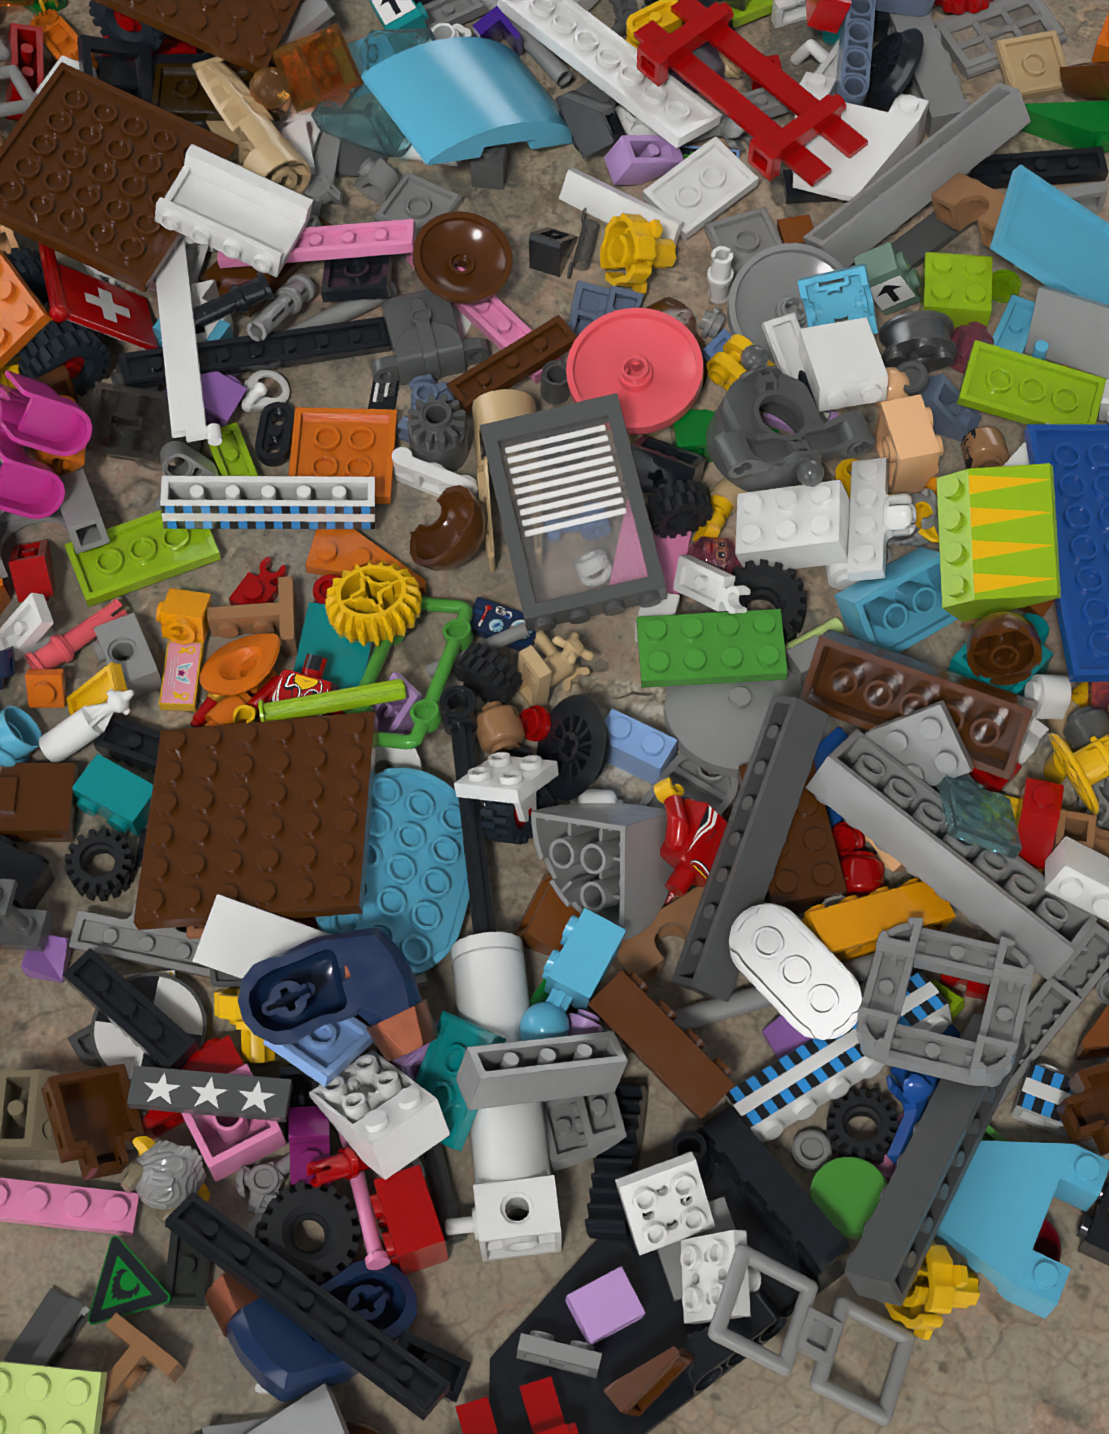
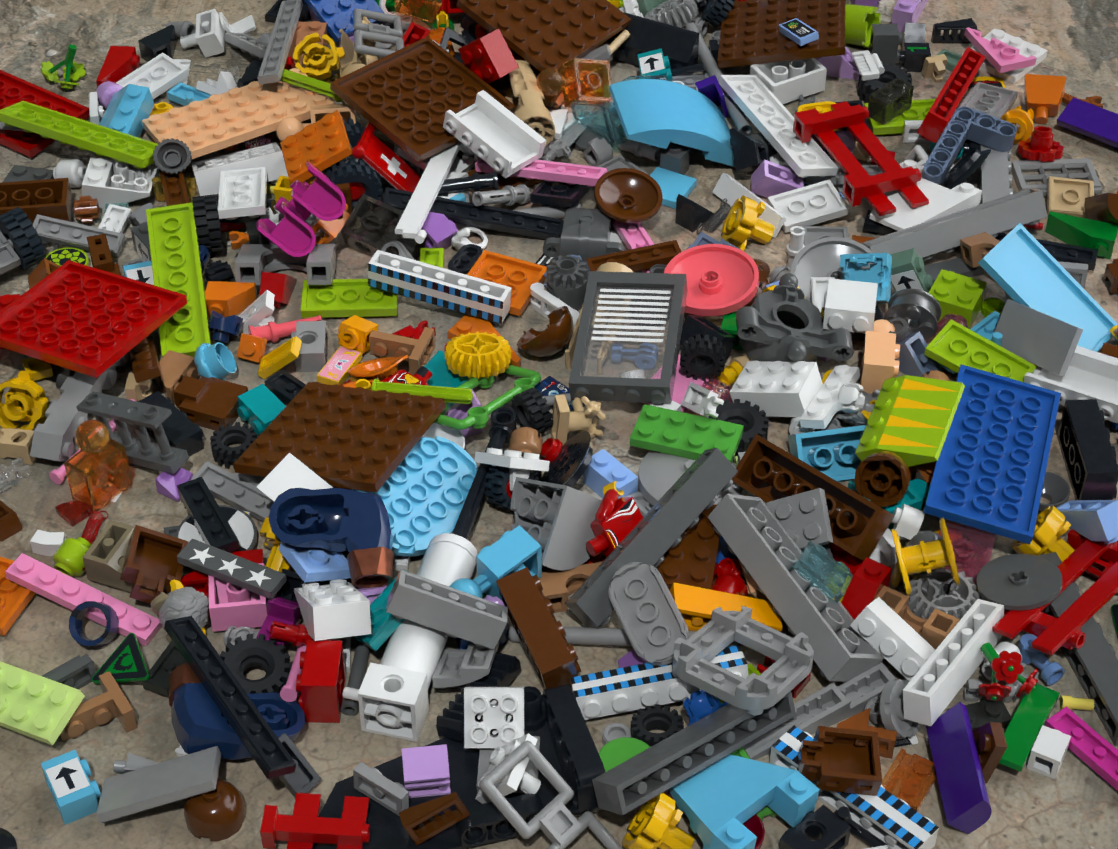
camera: 20 degrees right, 20 degrees down
(42, 1262) = (77, 617): none -> dark blue piece
(83, 726) = (263, 367): white wheel -> none
(168, 75) = (488, 57): none -> red brick
(501, 203) = (672, 185): none -> medium azure tile

